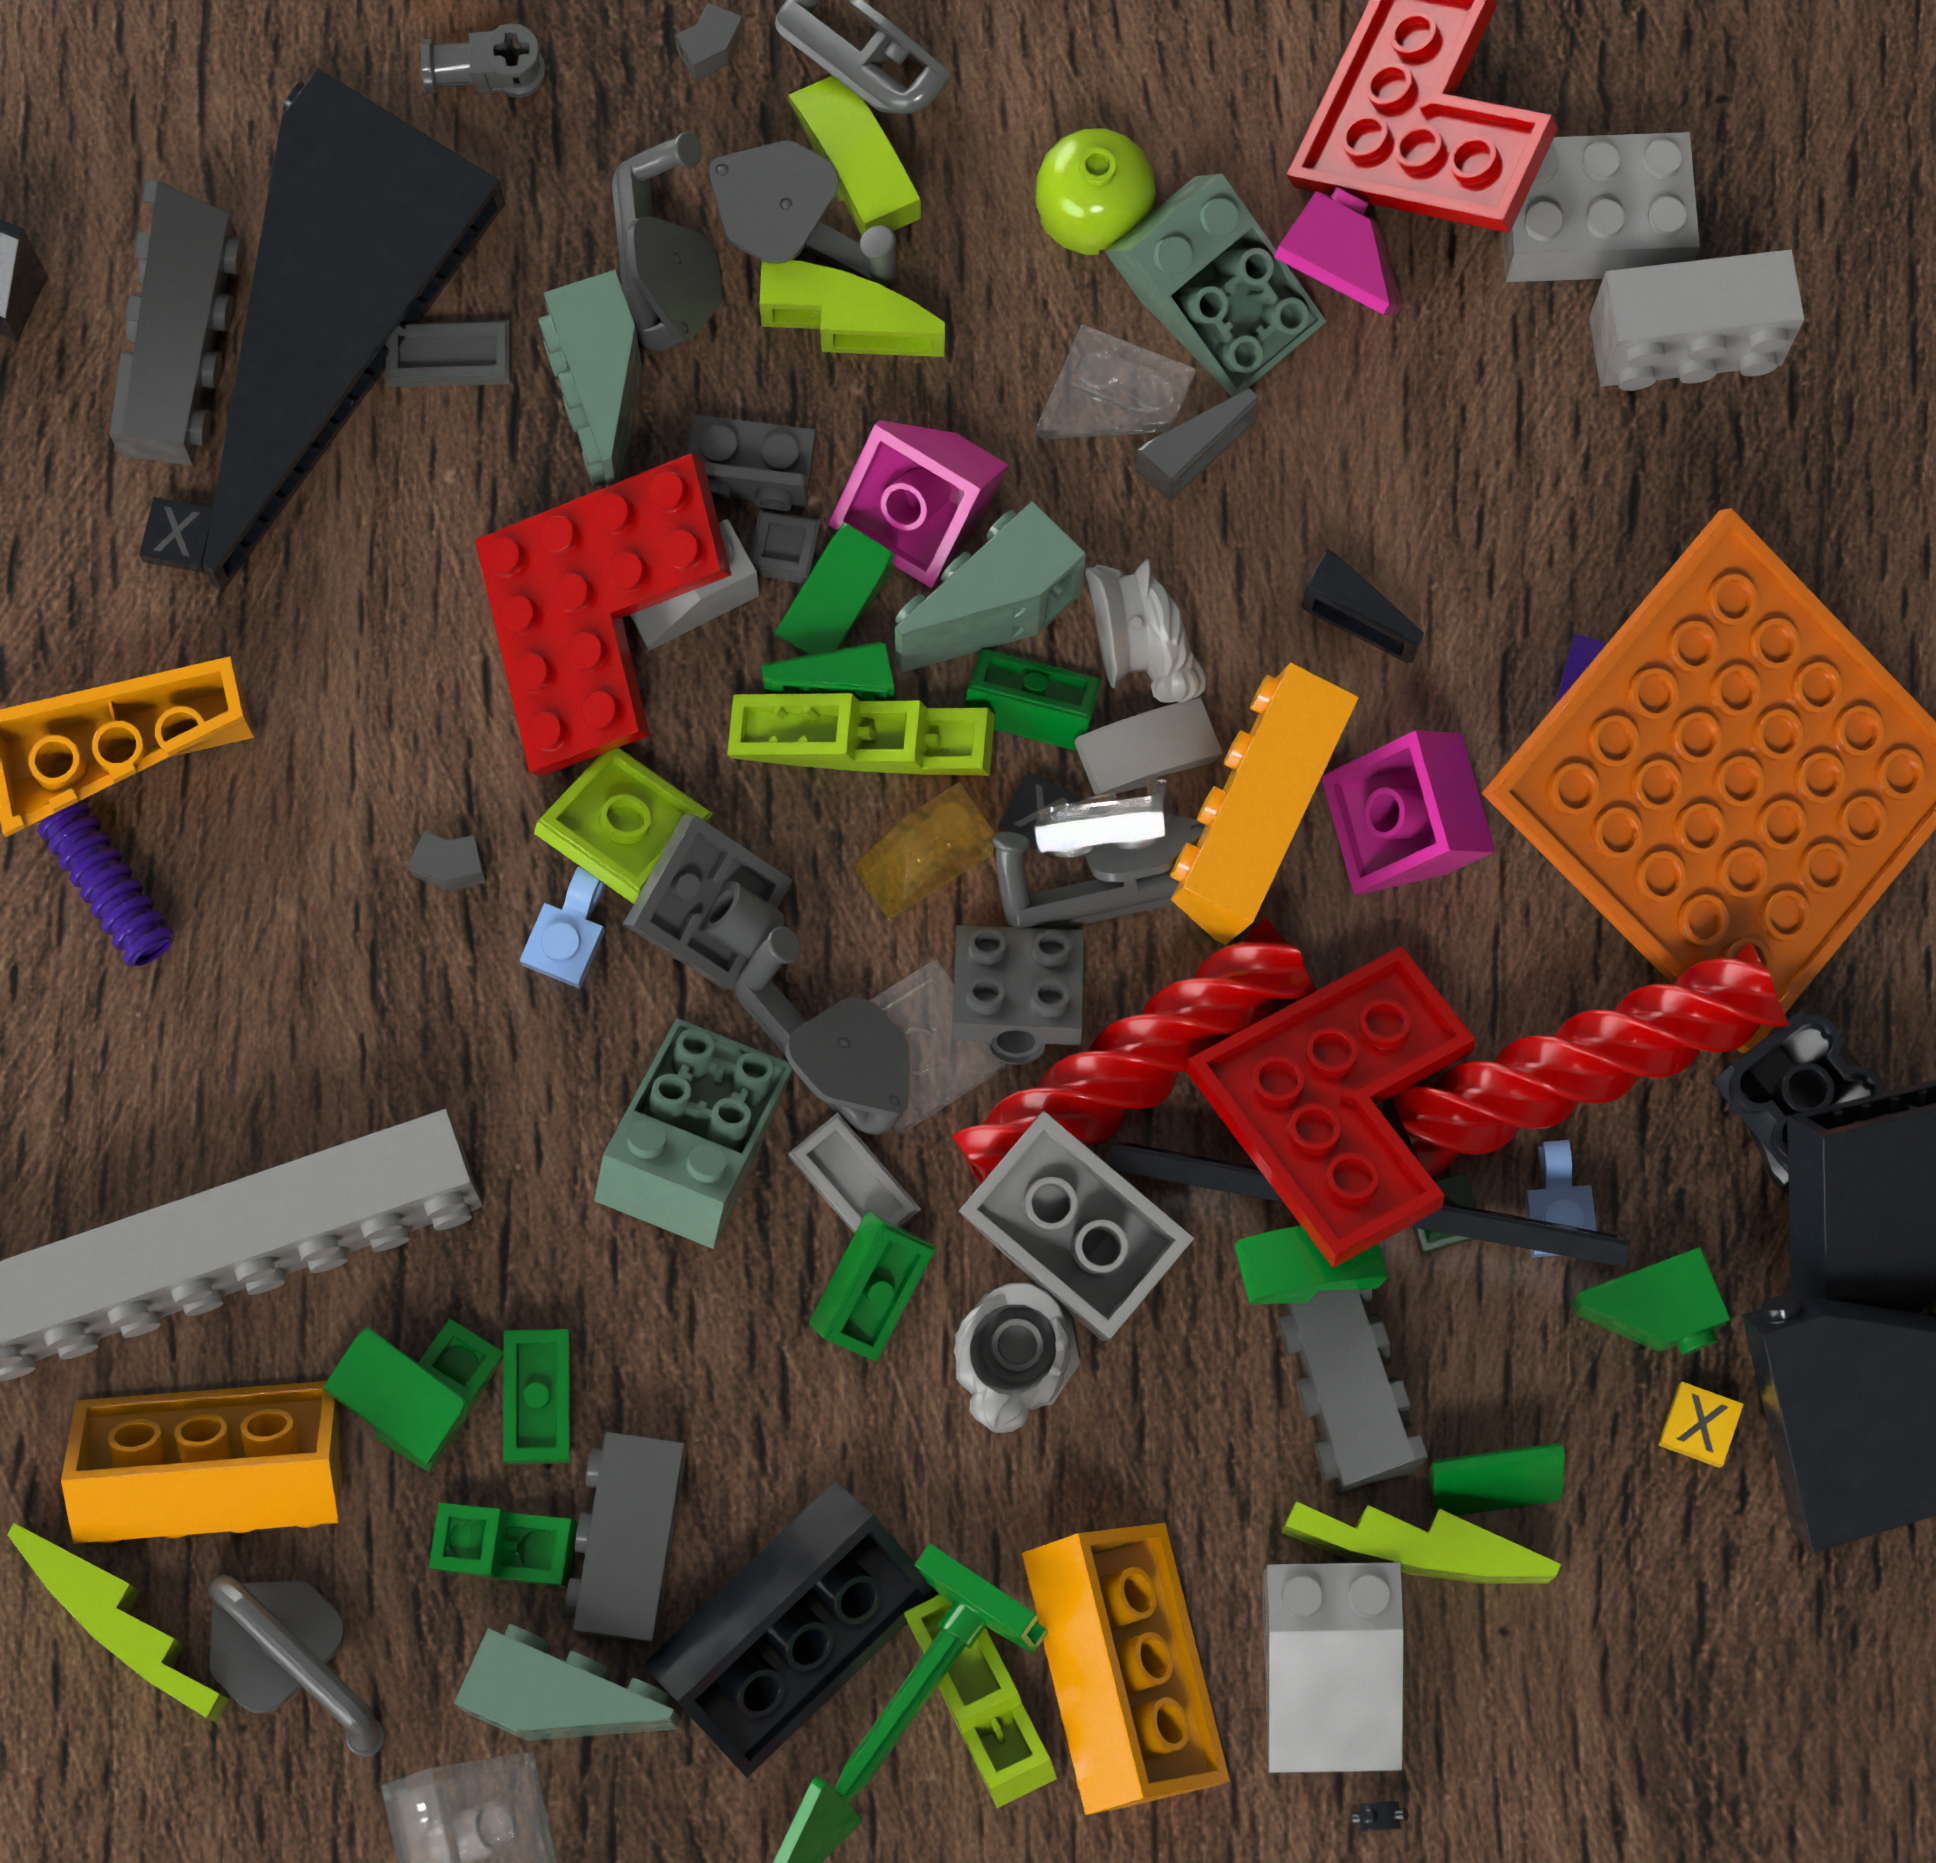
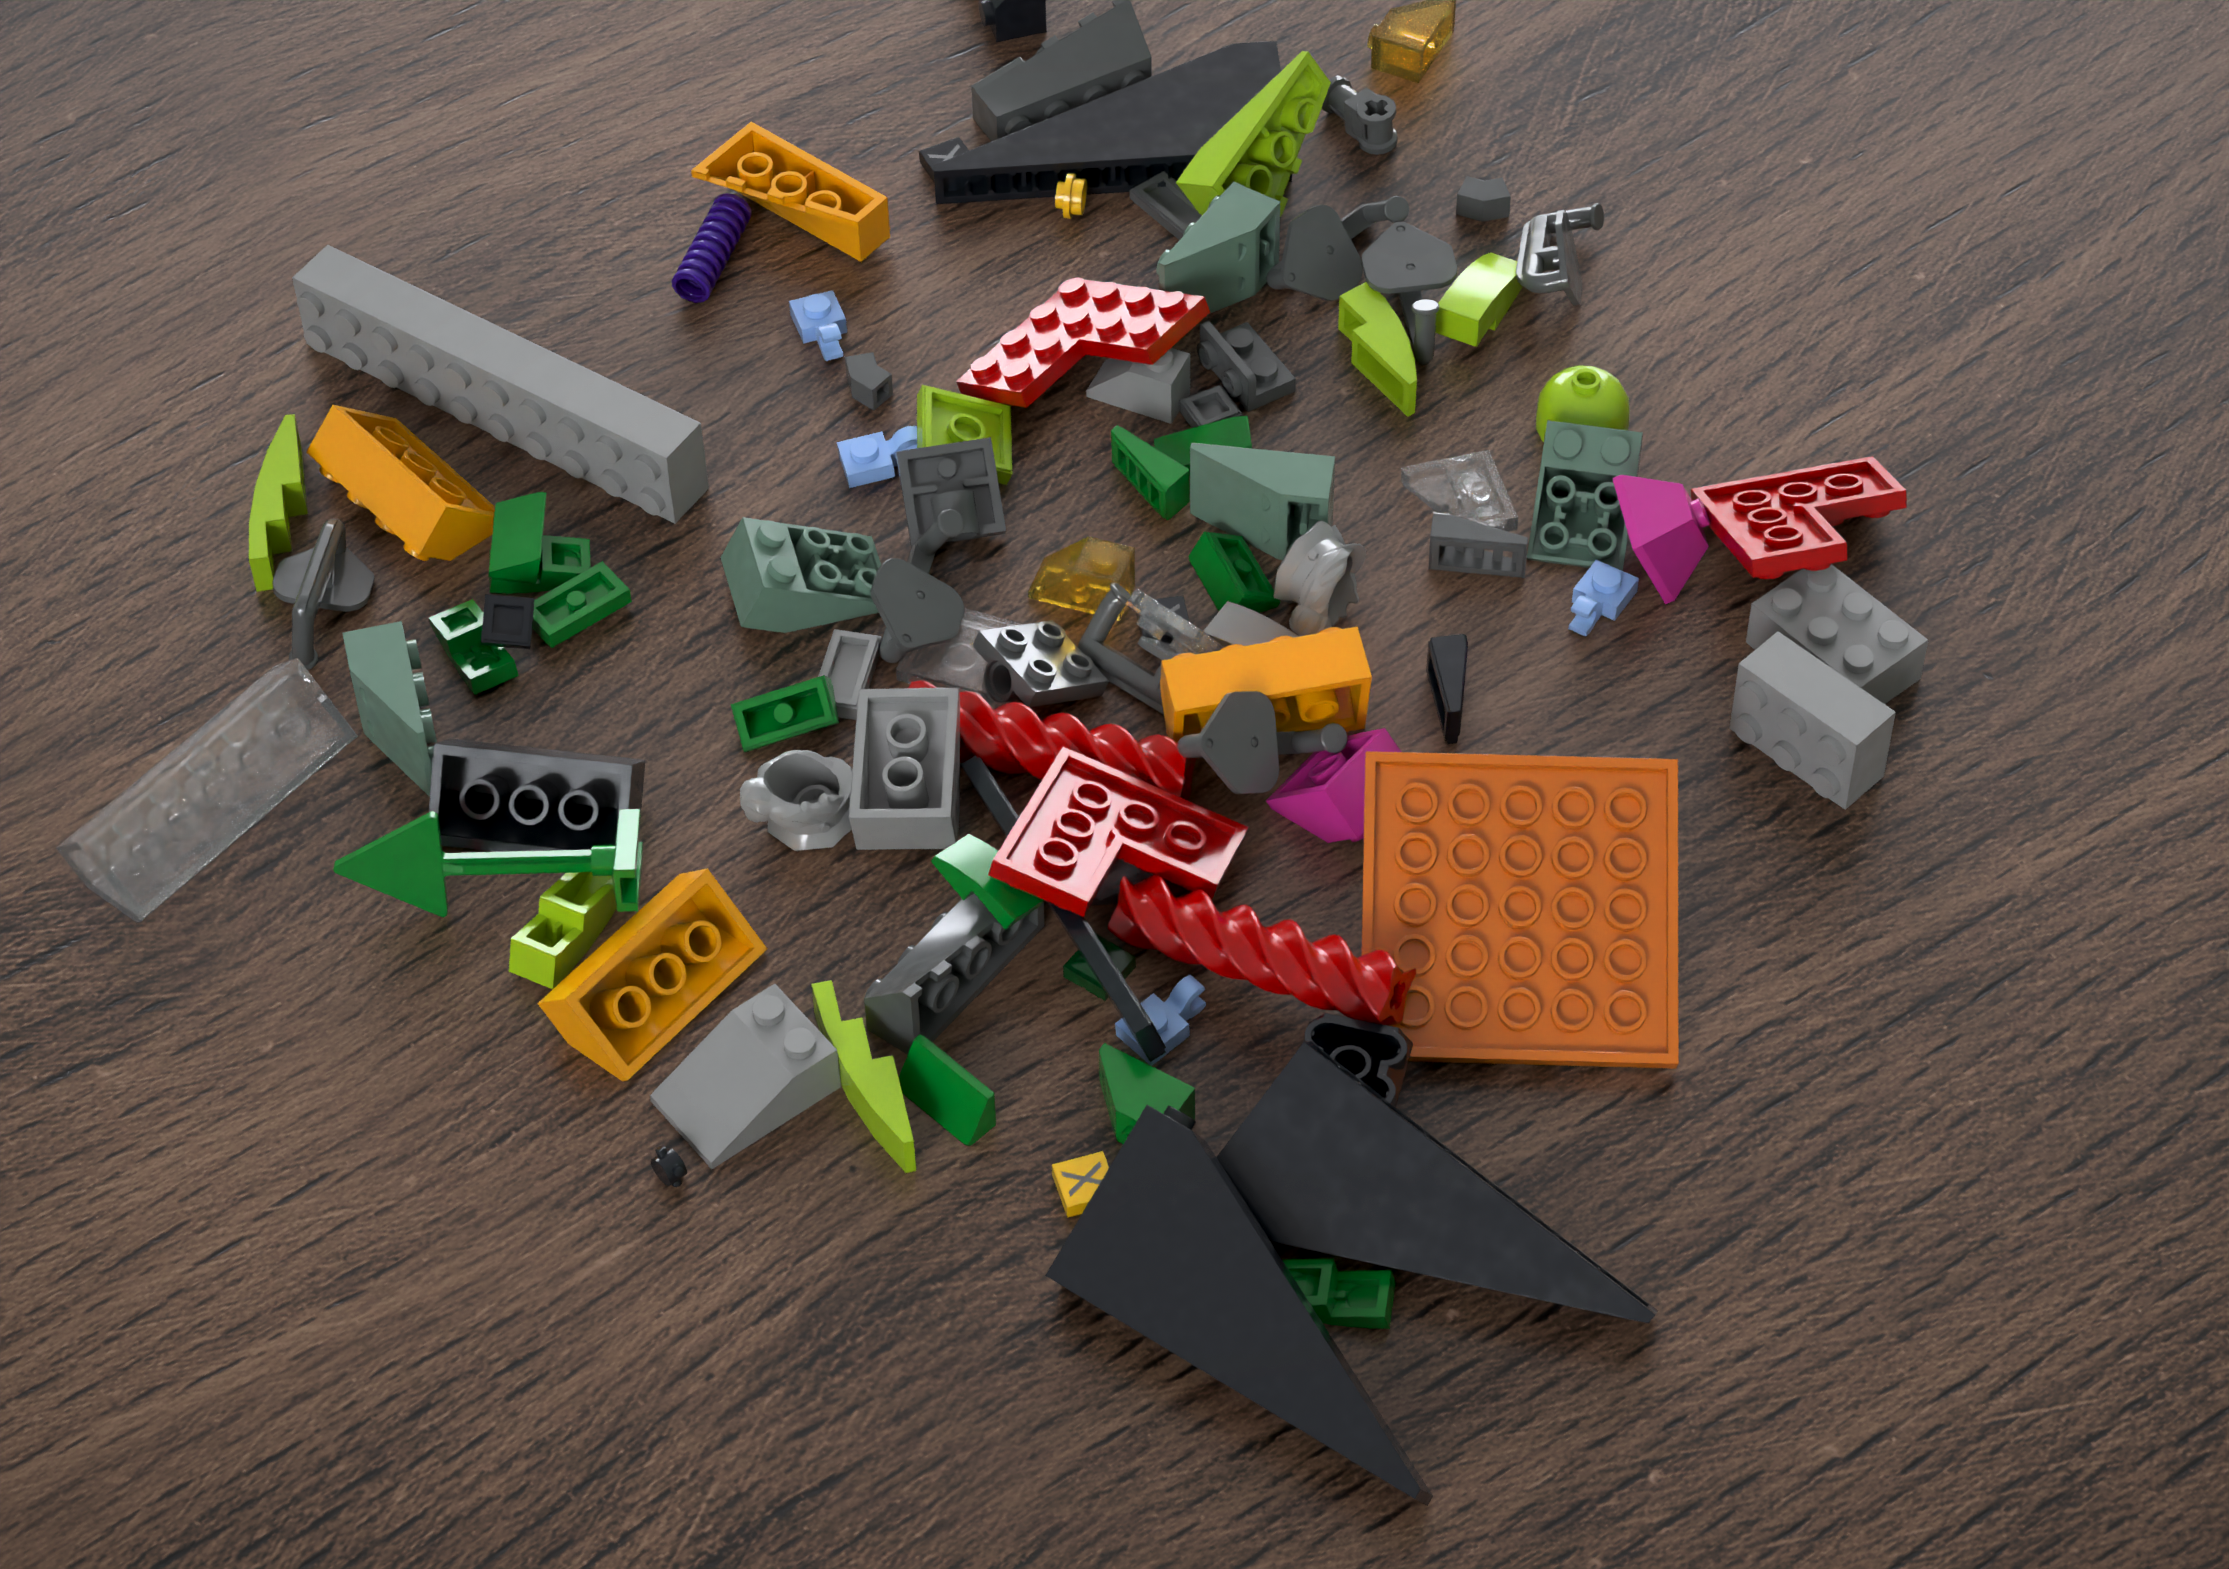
camera: 55 degrees right, 25 degrees down
(311, 843) = (822, 320): none -> light blue plate
(353, 450) = (1071, 196): none -> yellow plate
(487, 243) = (1261, 139): none -> lime wedge
(520, 1493) = (507, 621): none -> black tile
(626, 1539) = (526, 692): dark grey brick -> none
(860, 735) = (1127, 510): lime slope -> none
(919, 495) = (1309, 423): dark pink slope -> none
(1328, 876) = (1244, 743): none -> dark grey piece
(1347, 367) = (1600, 593): none -> light blue plate

